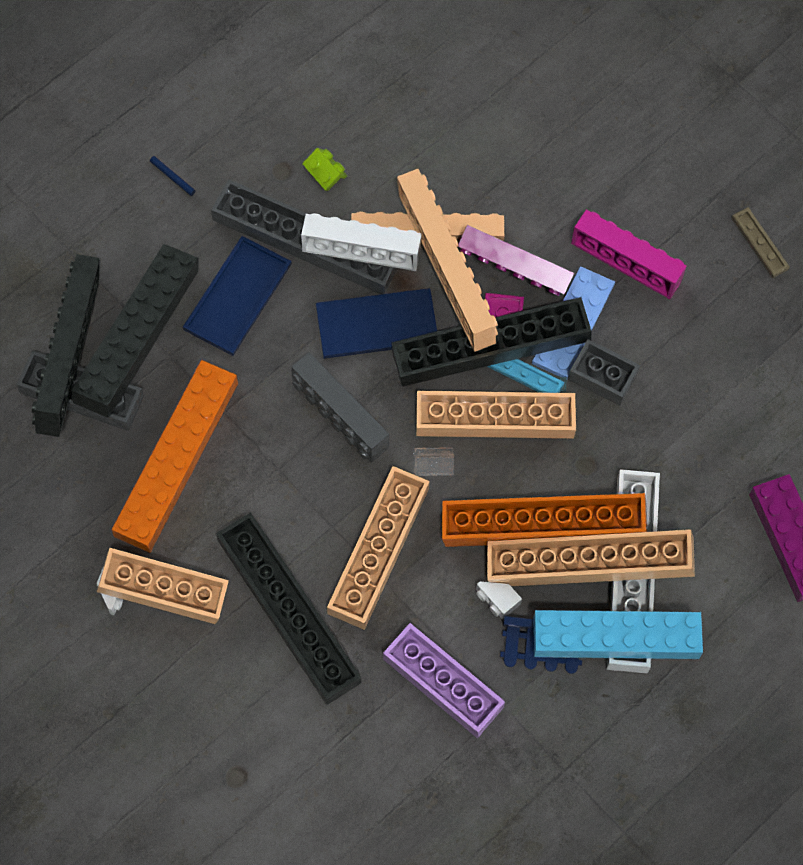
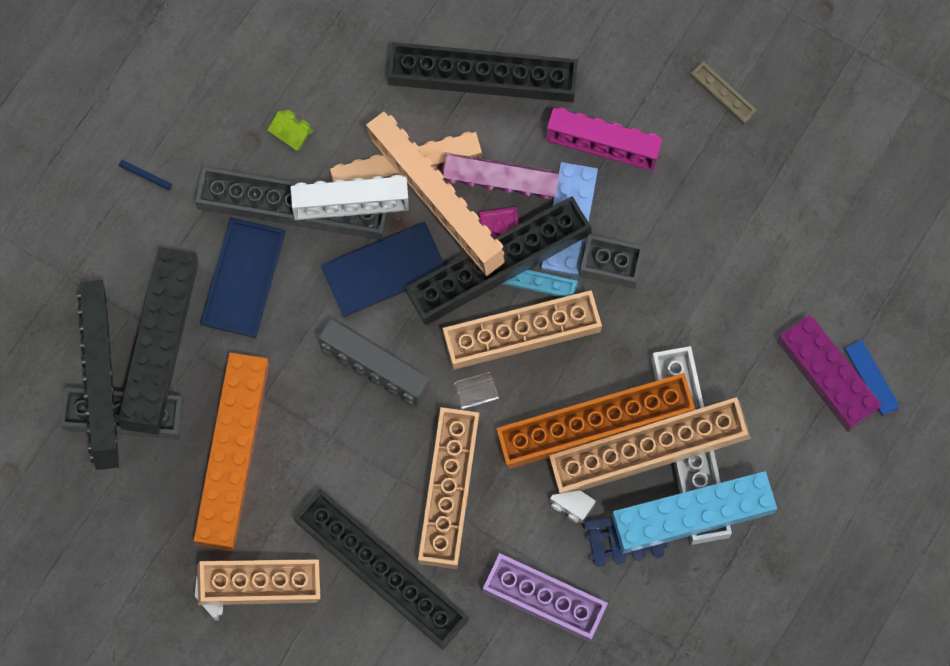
camera: 15 degrees left, 5 degrees up
(527, 162) = (482, 72): none -> pearl dark grey brick

